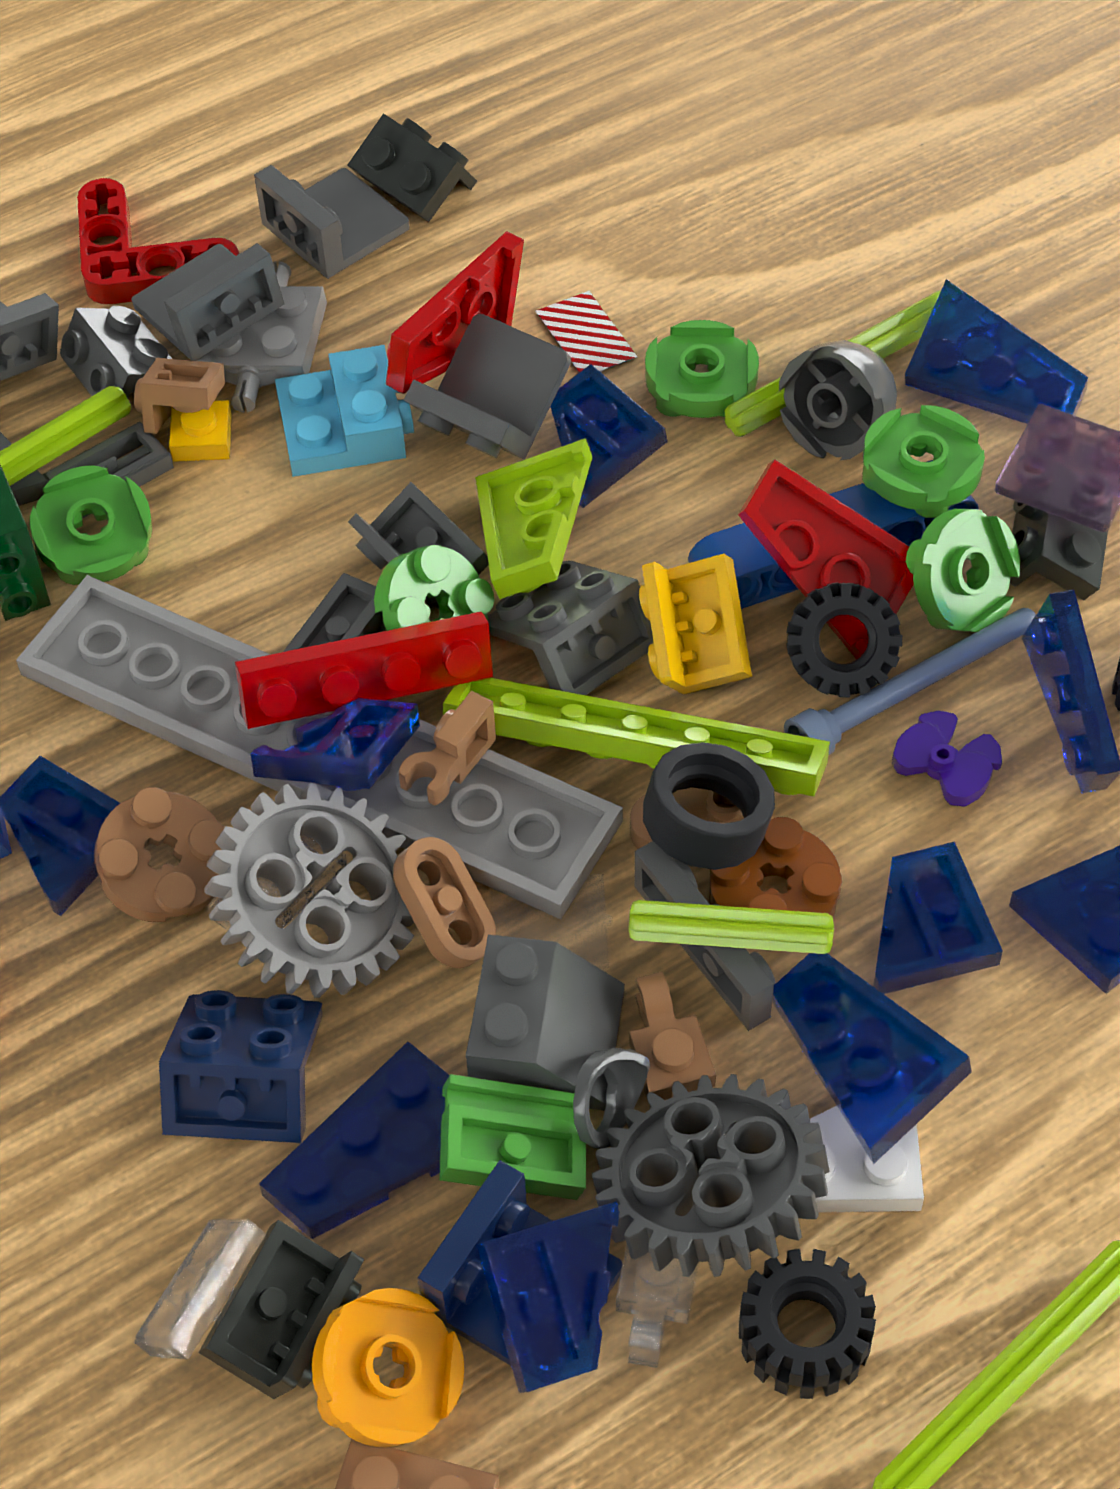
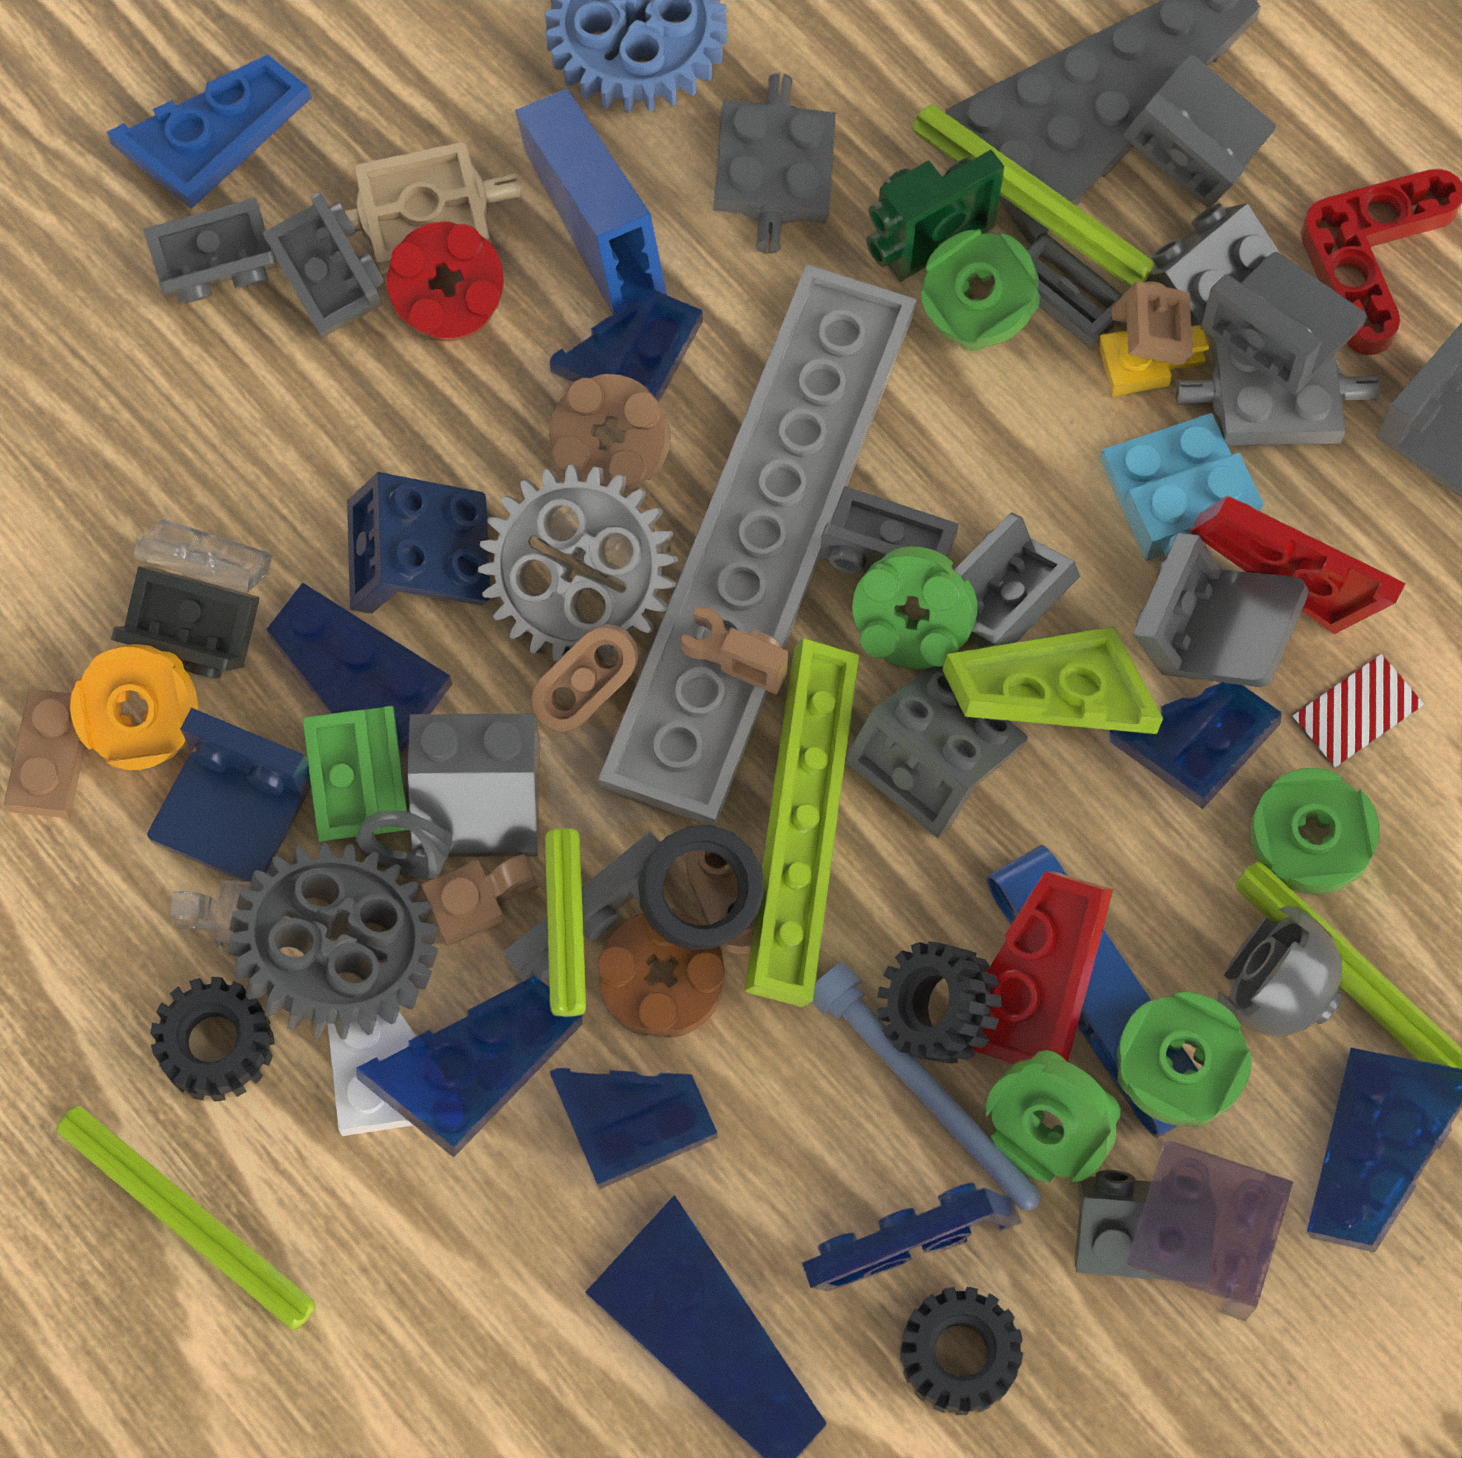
camera: 80 degrees right, 15 degrees up
(343, 748) = (724, 557): clear blue wing -> none
(364, 667) = (819, 560): red plate -> none
(551, 1293) = (199, 818): clear blue wing -> none
(695, 624) = (936, 854): yellow bracket -> none
(961, 773) = (818, 1141): dark purple piece -> none

